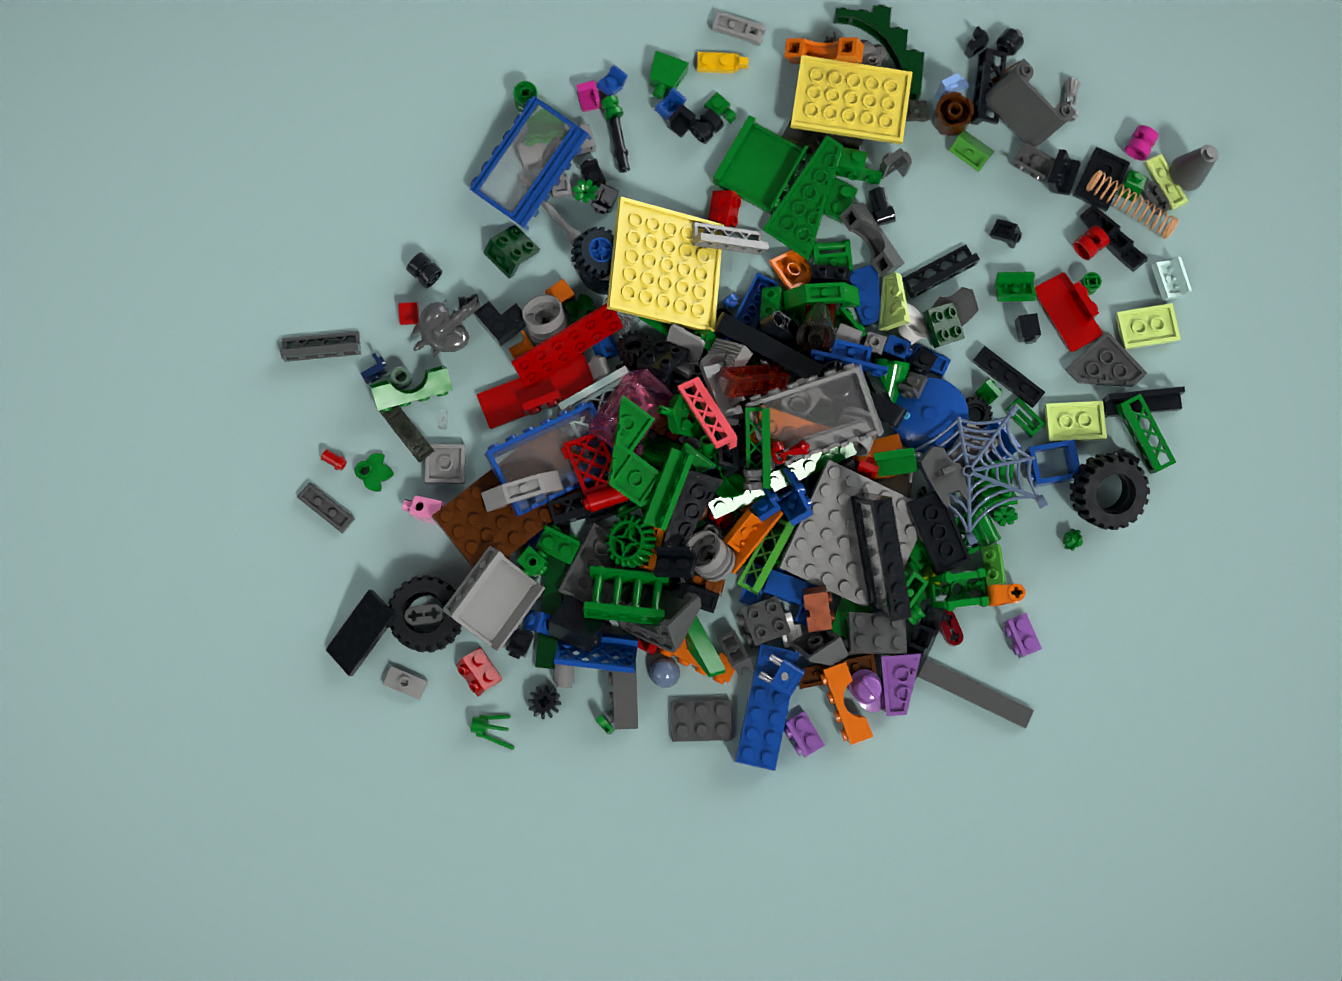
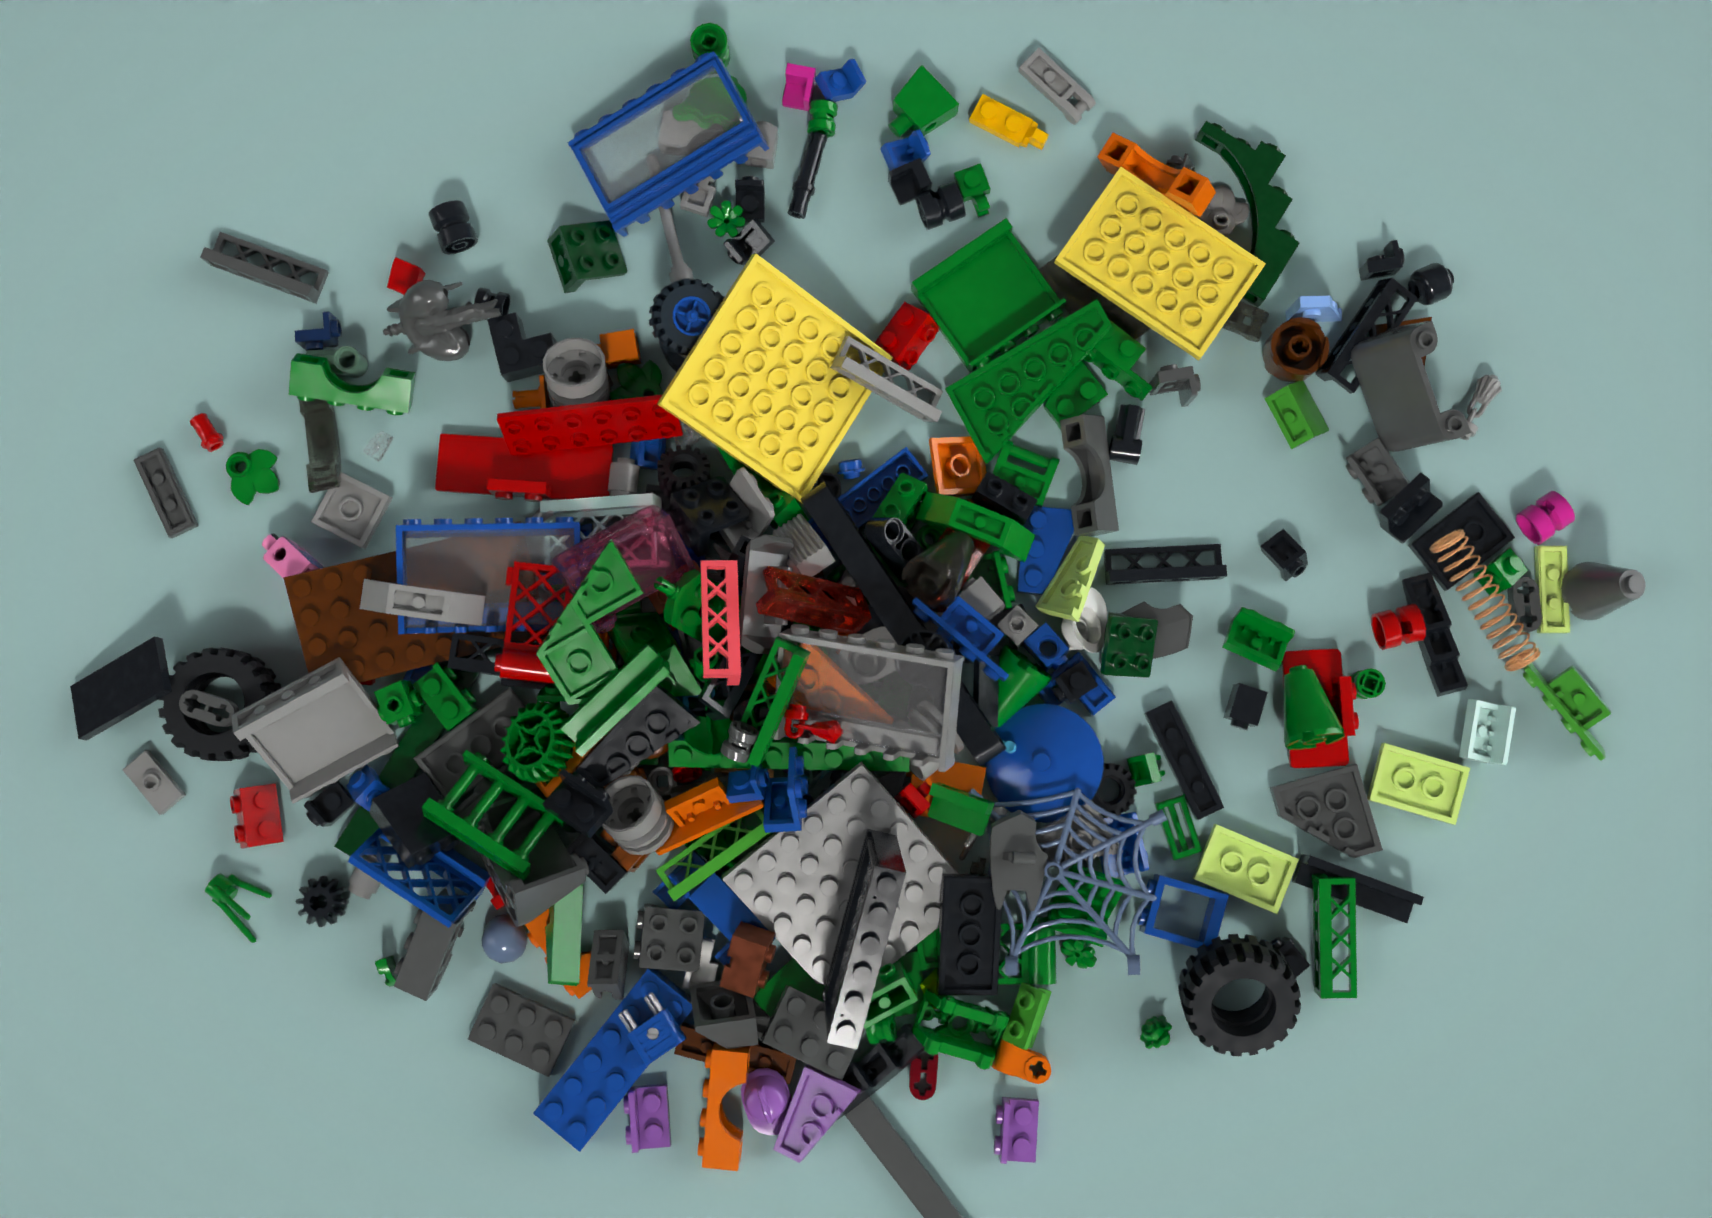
camera: 30 degrees right, 5 degrees up
(913, 385) = (1040, 710): dark grey bracket -> none
(1065, 313) = (1308, 711): none -> green cone
(1211, 237) = (1574, 701): none -> bright green bracket

